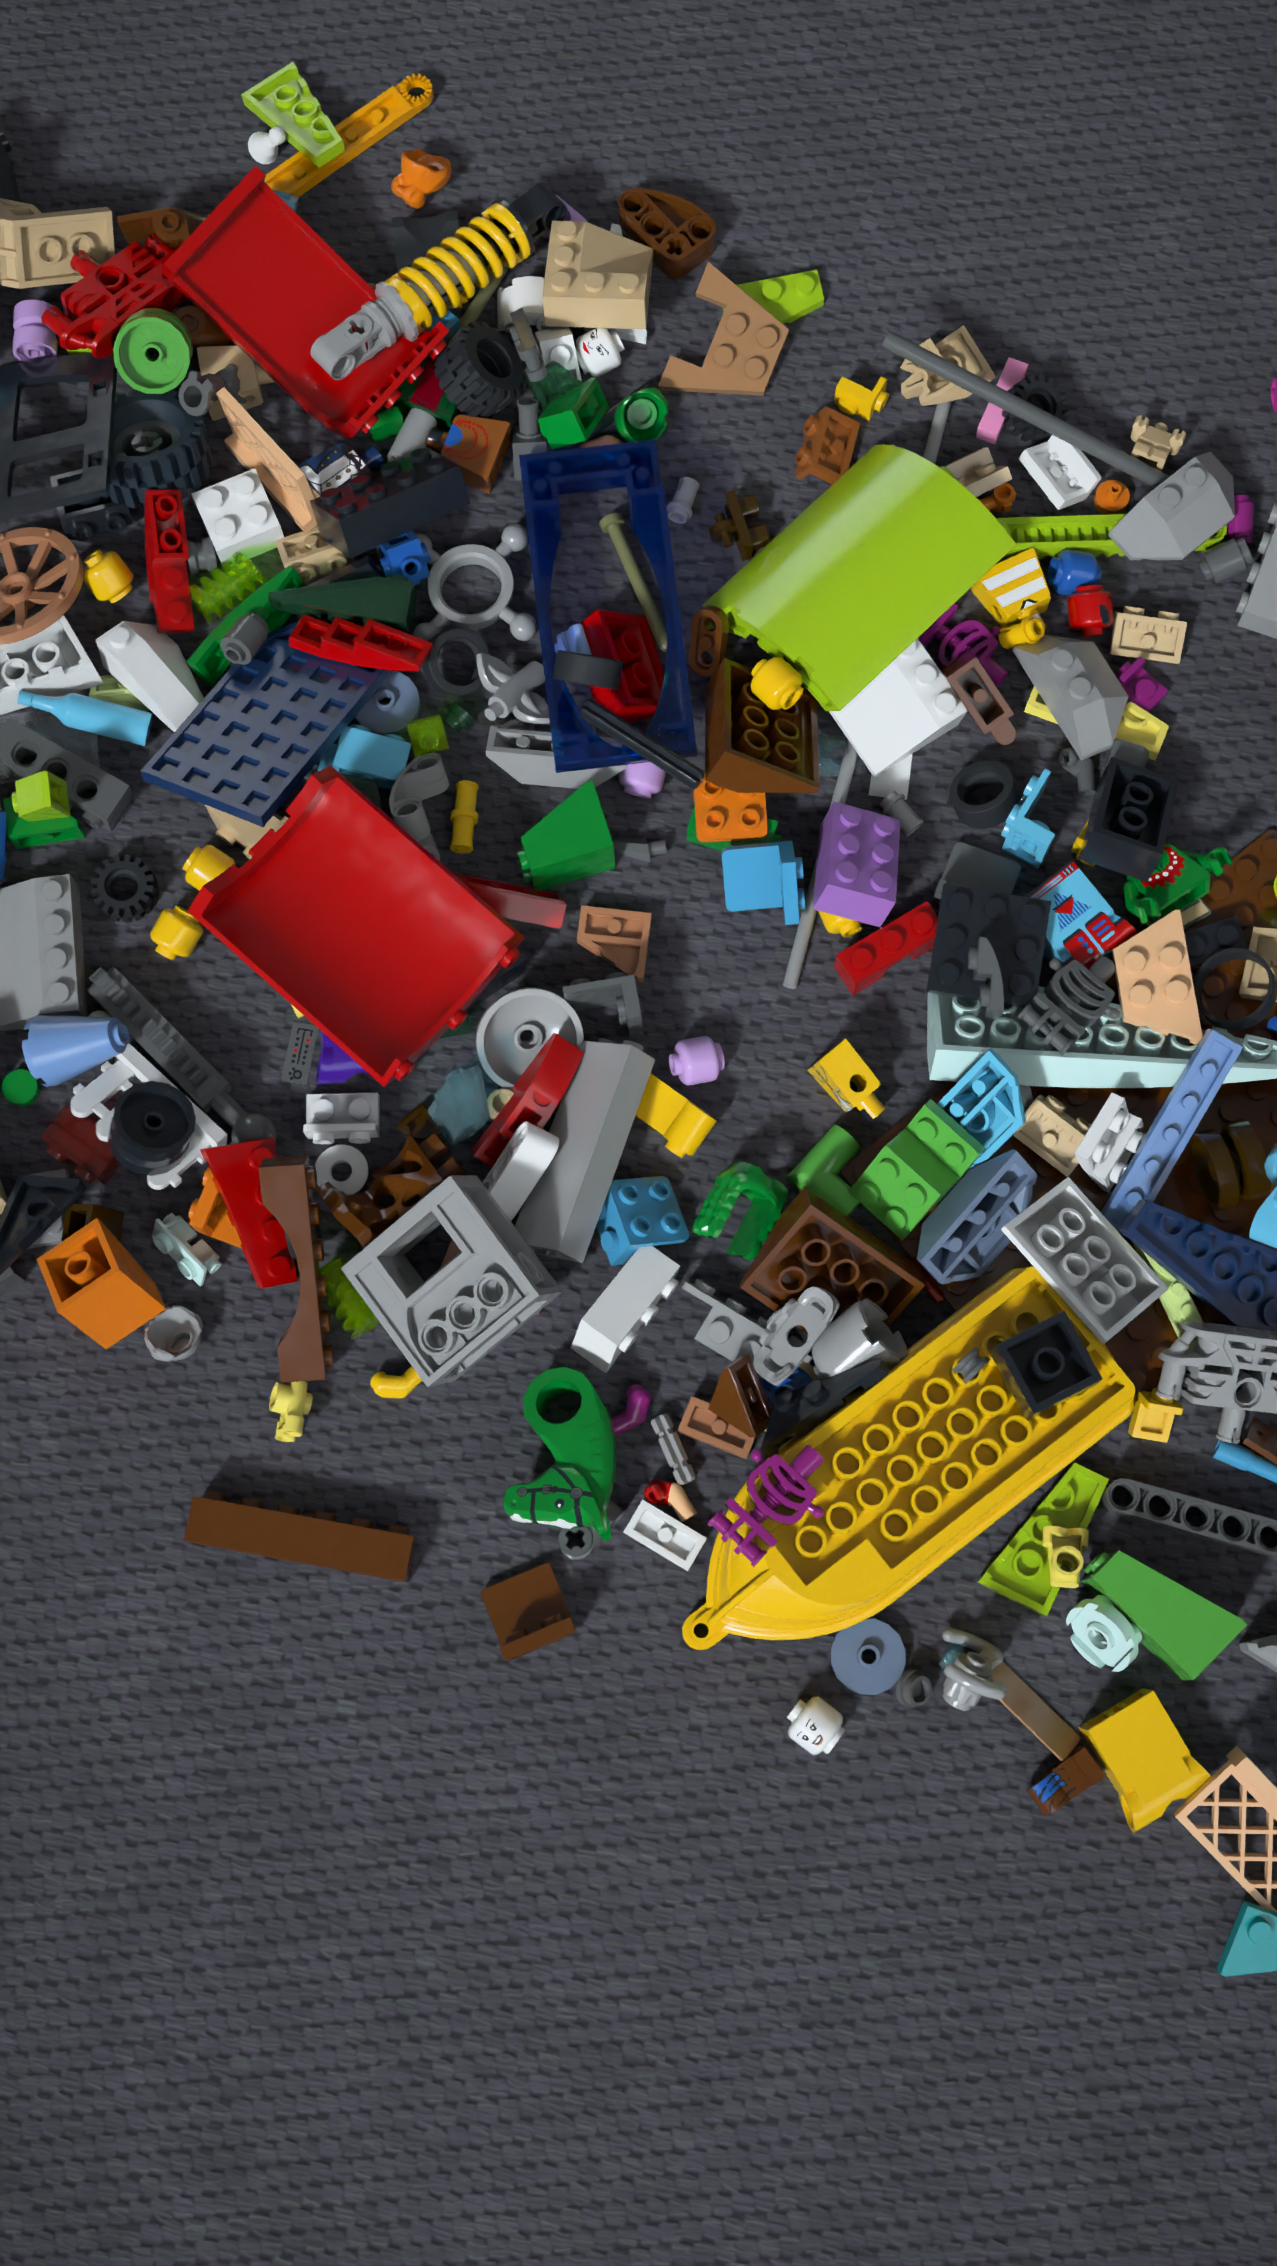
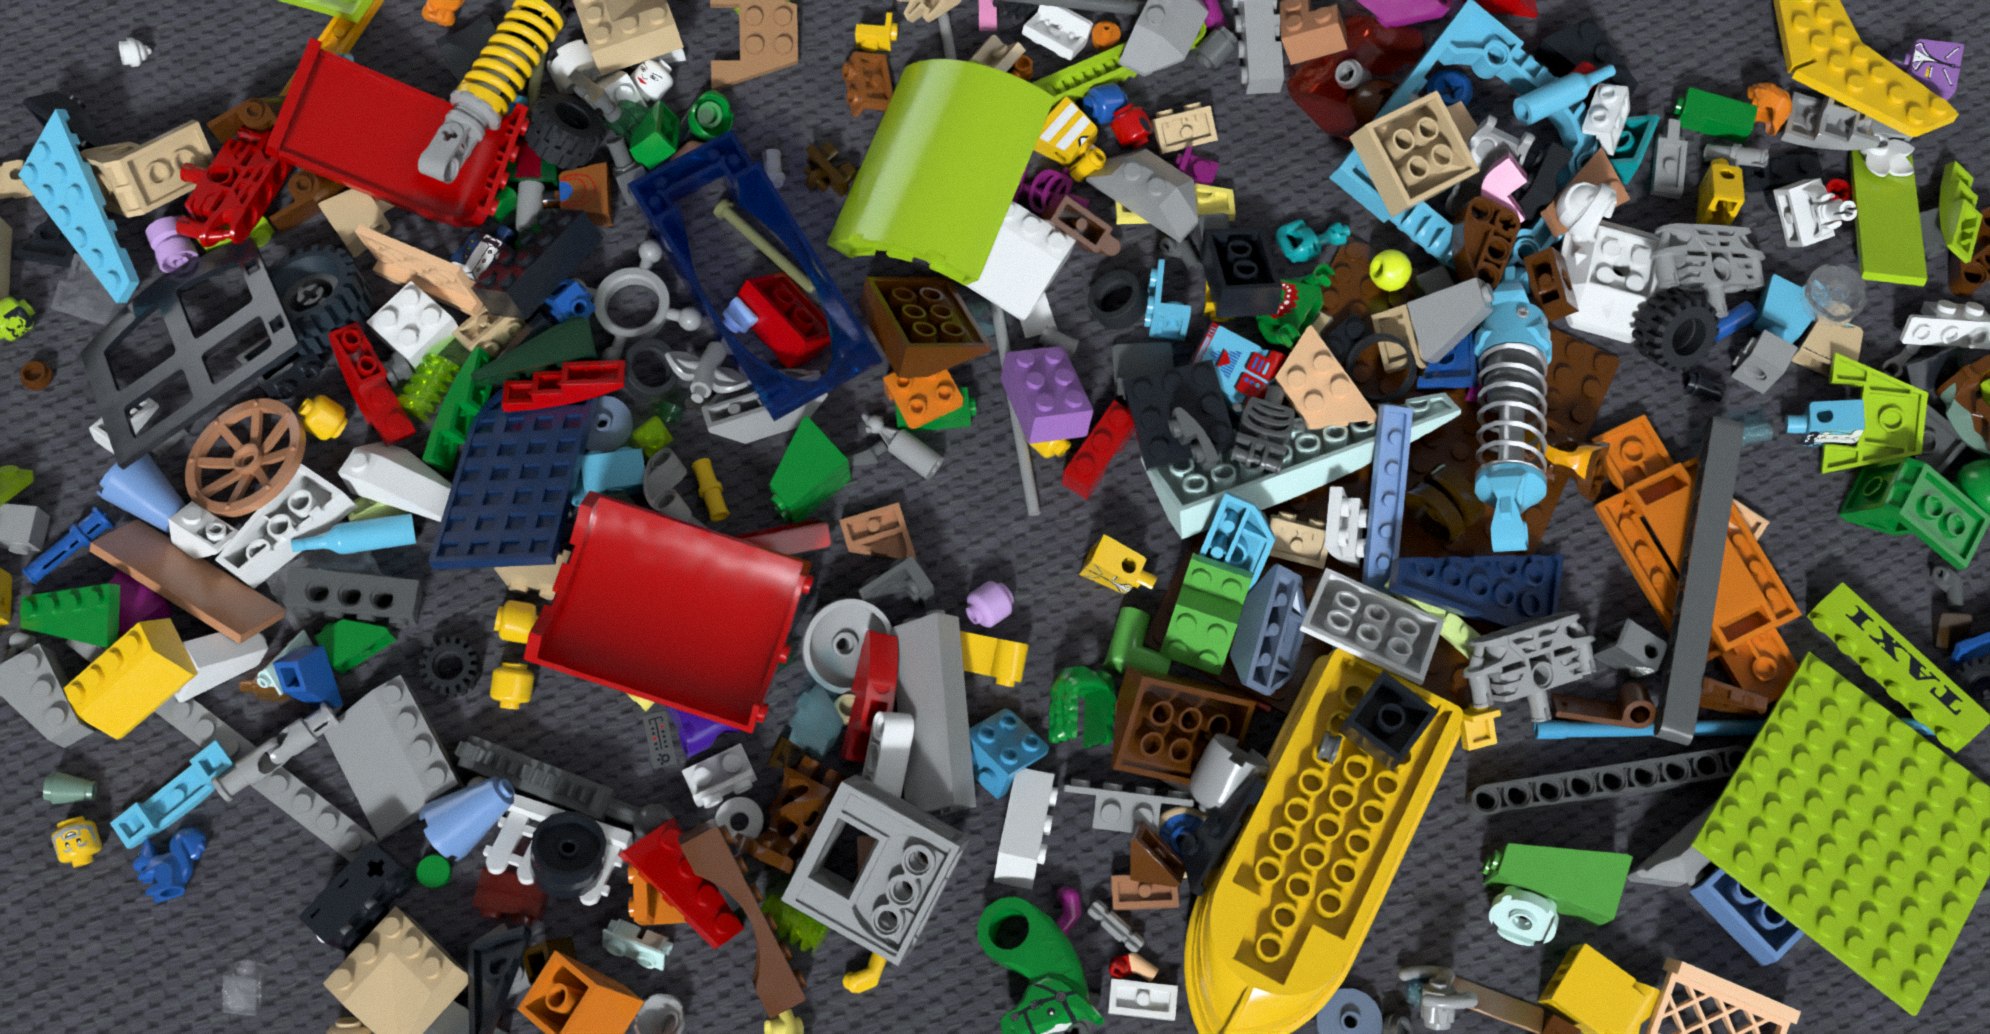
camera: 30 degrees left, 5 degrees down
(41, 797) = (349, 621): lime slope -> none
(83, 109) = (133, 52): none -> white plate
(160, 331) = (285, 200): bright green wheel -> none
(199, 392) = (341, 236): dark grey animal -> none
(244, 639) = (465, 420): dark grey brick -> none
(264, 145) = (302, 23): white piece -> none
(588, 669) = (762, 329): black tyre -> none
(642, 744) = (834, 369): black axle -> none
(642, 779) = (843, 398): lavender head -> none
(686, 858) = (905, 447): none -> light grey wheel
(708, 638) = (845, 267): reddish brown plate -> none
(763, 878) = (977, 436): dark azure bracket -> none
(776, 683) = (918, 279): yellow head -> none
(777, 1357) = (1167, 812): light grey piece -> none
(796, 1473) = (1234, 898): magenta torso -> none
(1023, 1565) = (1443, 871): lime wing -> none
(1067, 1548) = (1463, 861): light yellow plate -> none
(1224, 815) = (1308, 243): none -> teal piece

